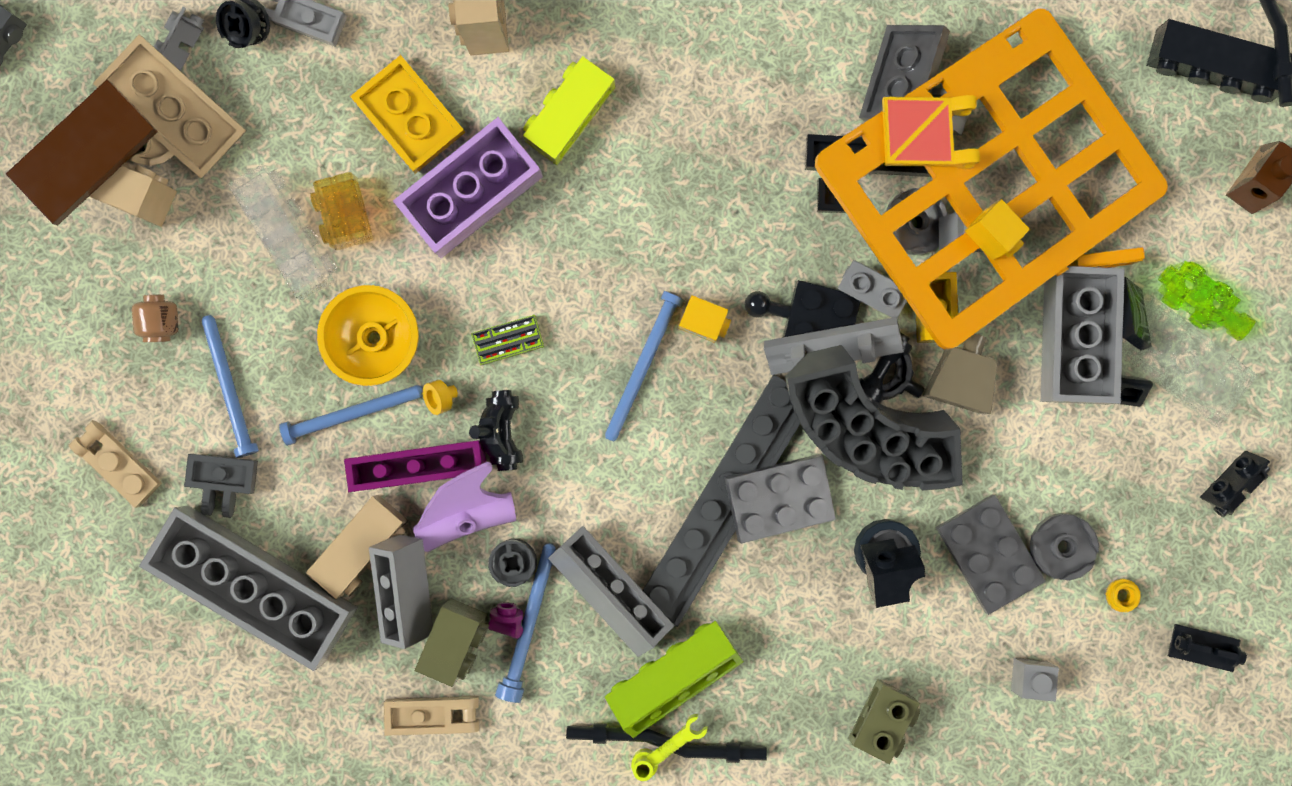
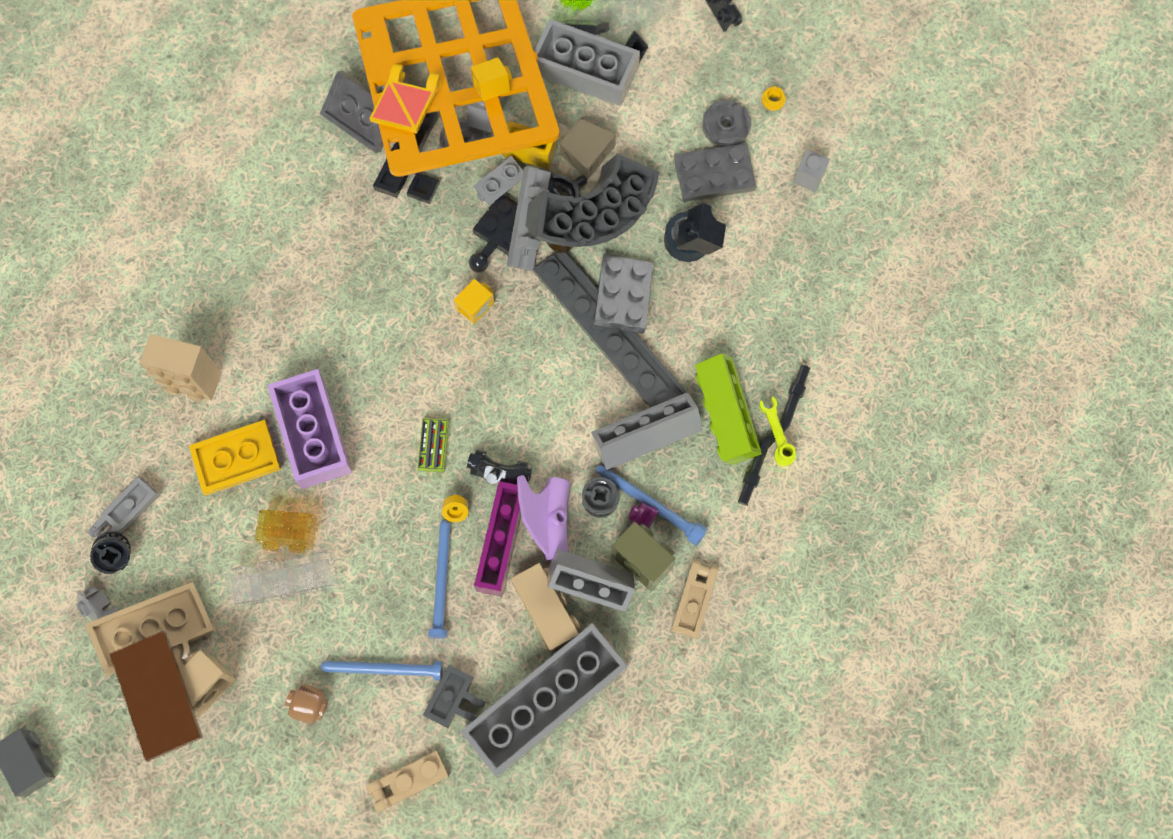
camera: 70 degrees left, 15 degrees down
(346, 330) = (377, 524): yellow hat -> none
(568, 109) = (282, 340): neon yellow brick -> none
(643, 364) = (452, 319): medium blue bar -> none
(883, 721) = (807, 276): olive brick -> none
(1110, 258) = (540, 24): light orange tile -> none
(1206, 648) = (828, 60): black hinge -> none

